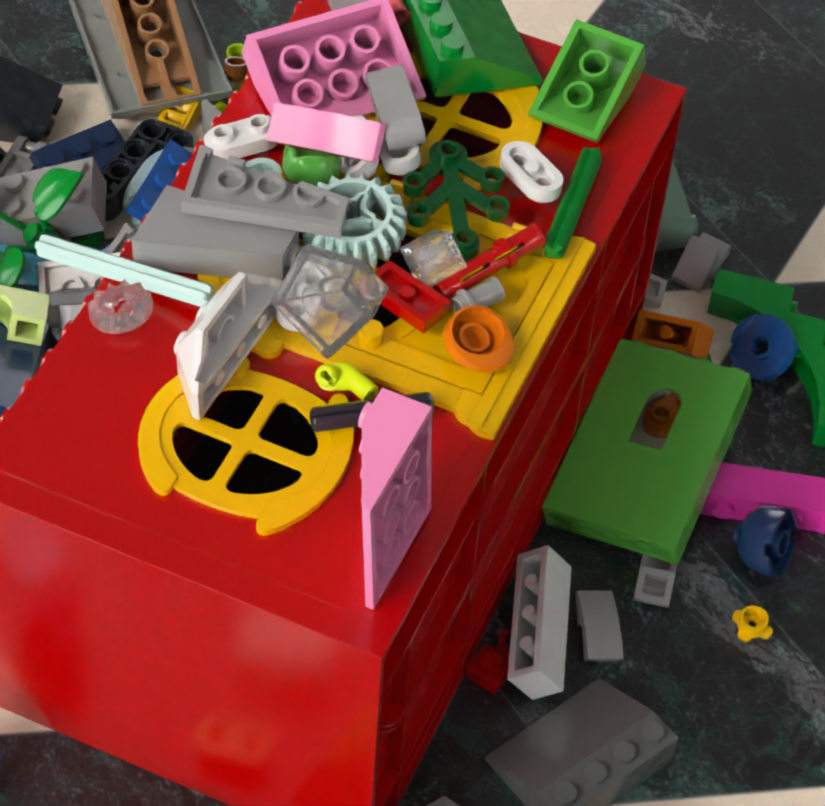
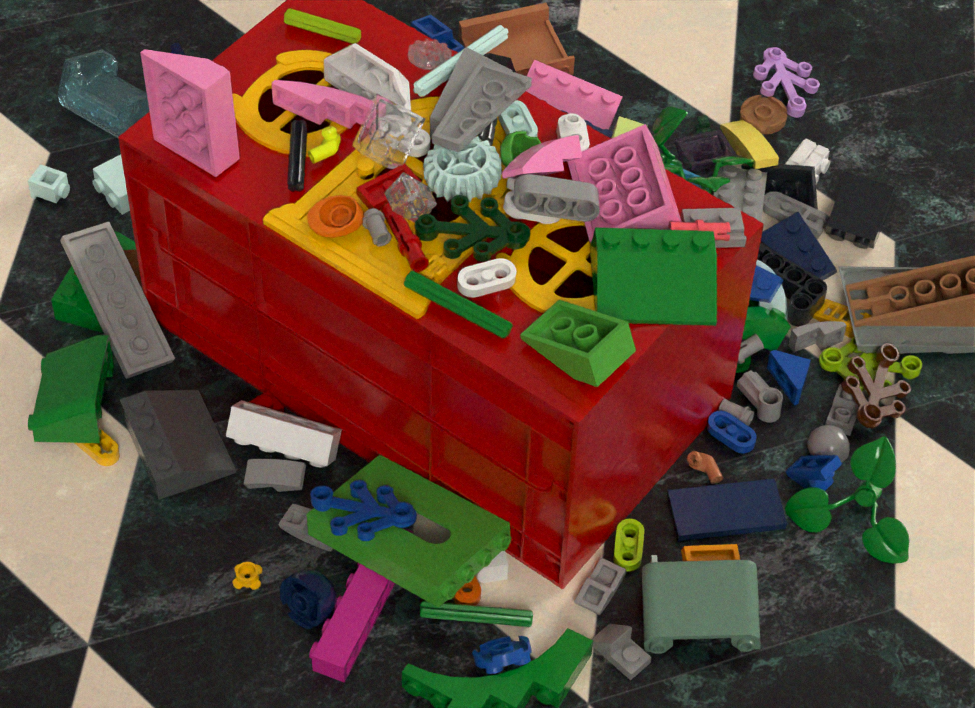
camera: 105 degrees right, 0 degrees up
(90, 441) = (322, 26): none -> lime axle
(273, 388) = (320, 102): none -> bright pink slope
(653, 476) = (398, 514): none -> blue plant
(673, 333) = (524, 584): orange brick -> none

